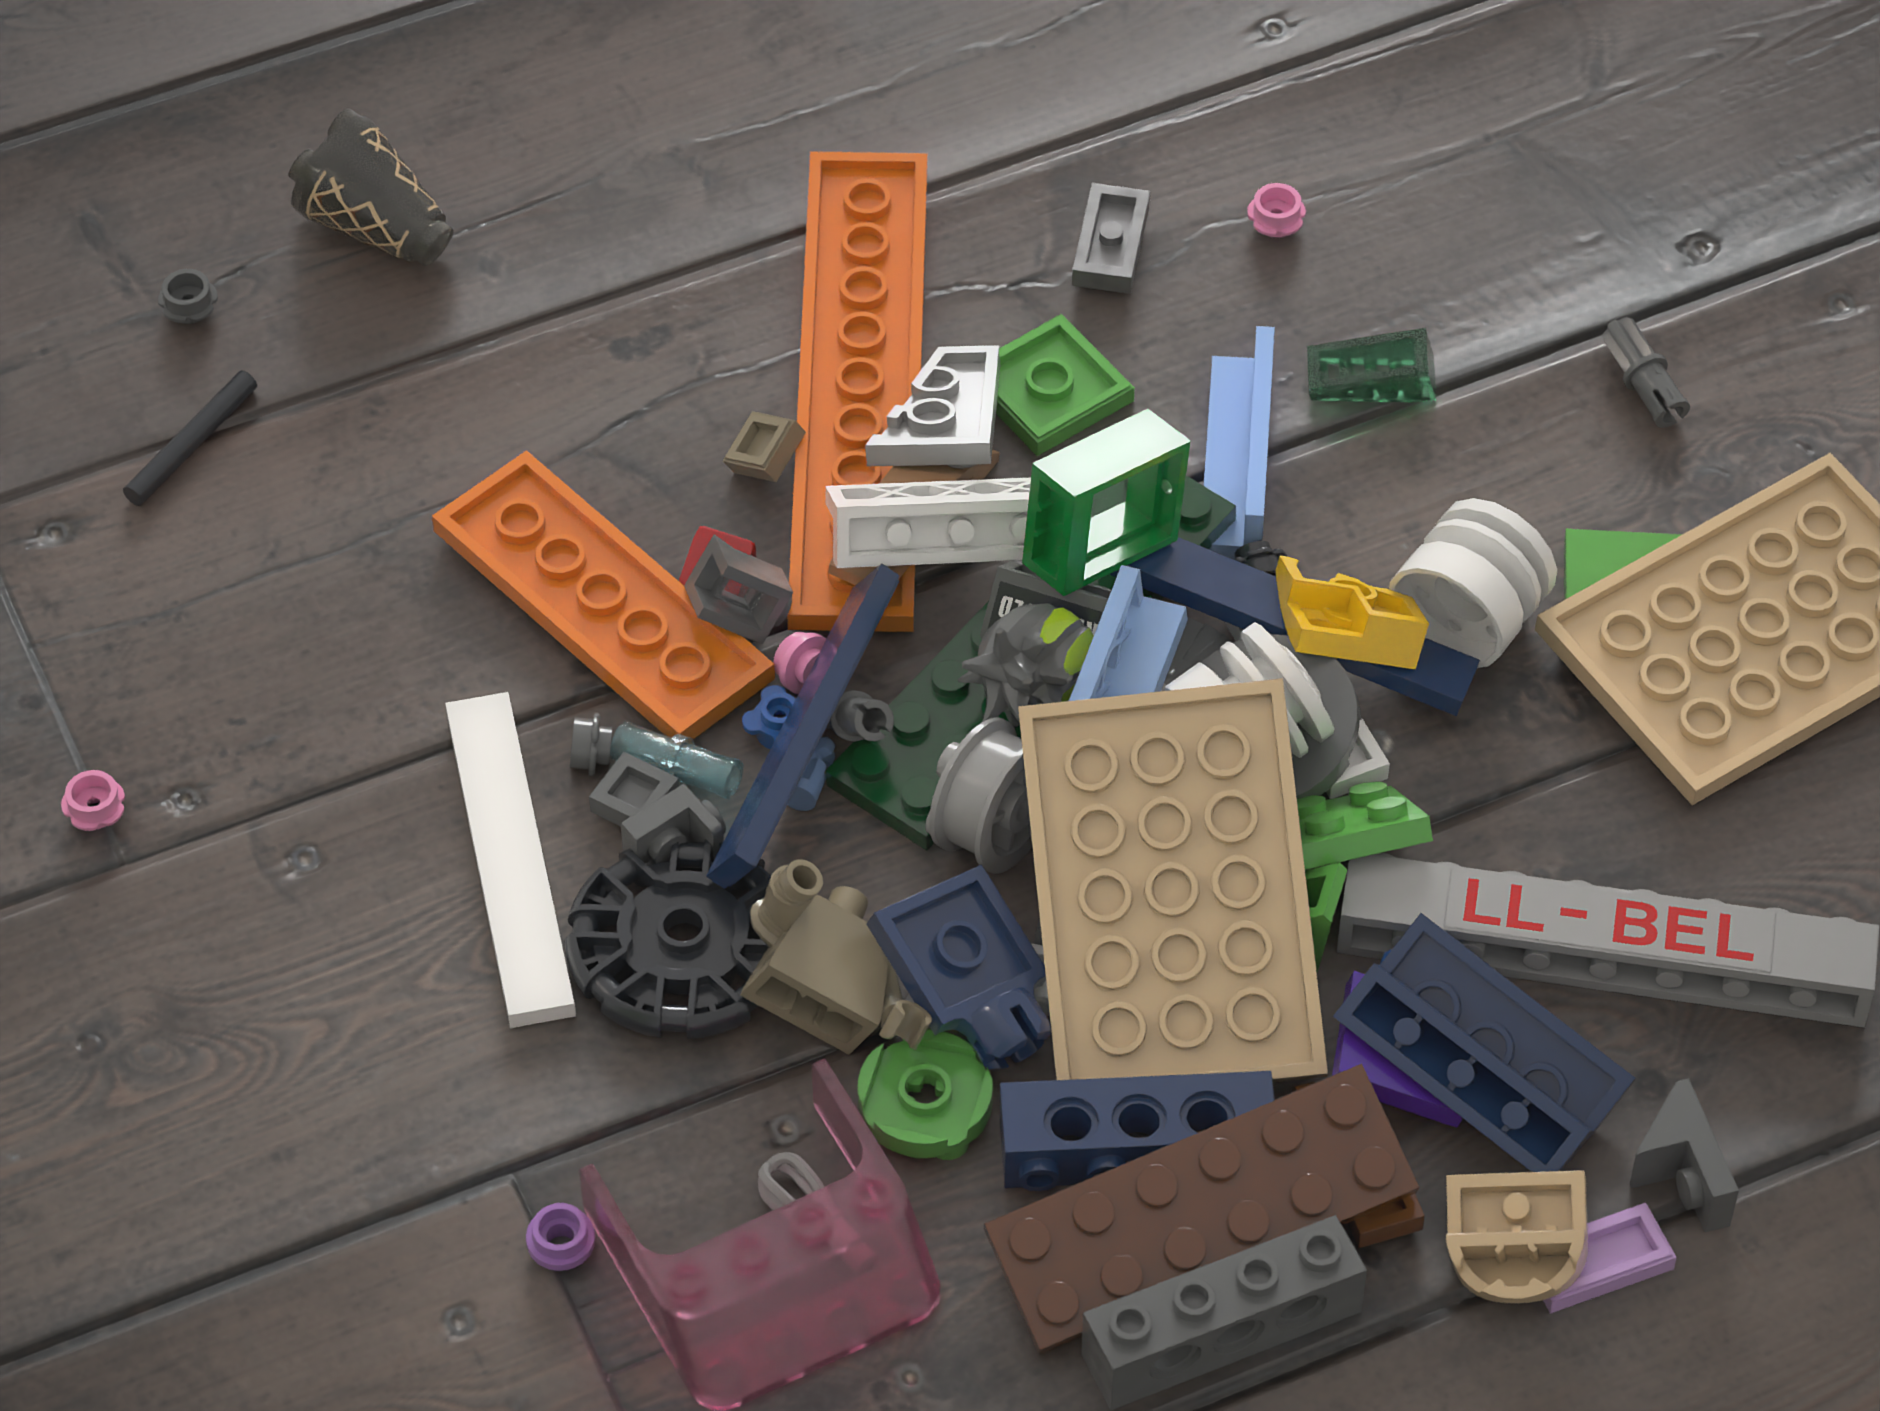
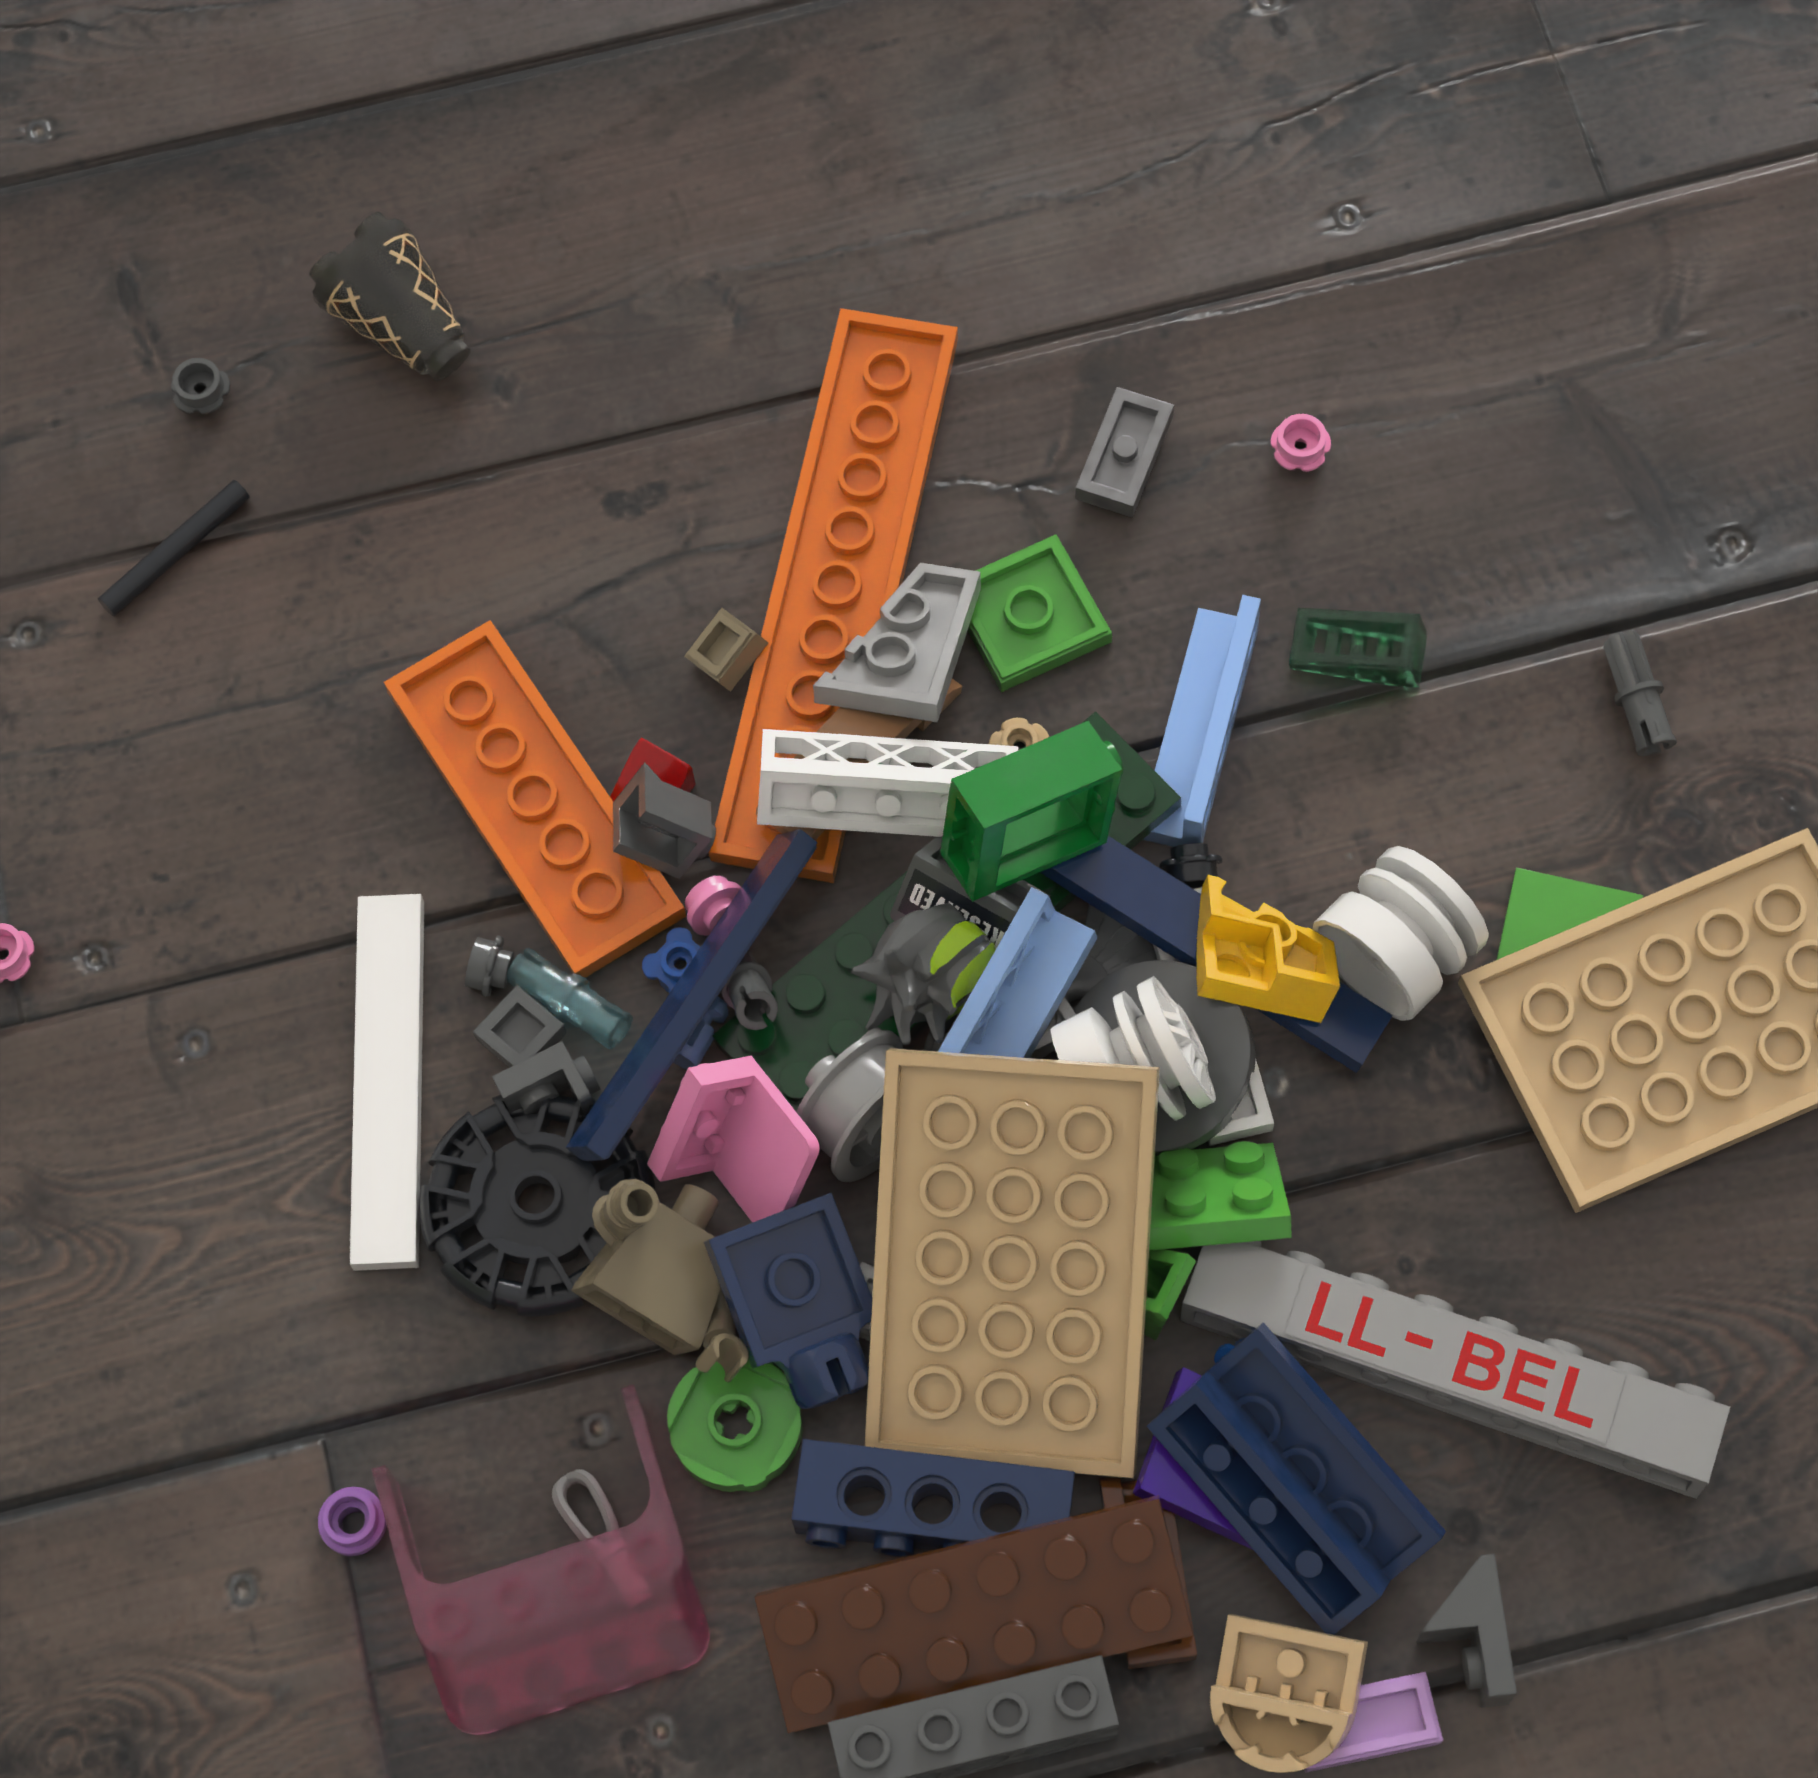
camera: 15 degrees right, 15 degrees up
(879, 831) = (742, 1130): none -> bright pink bracket

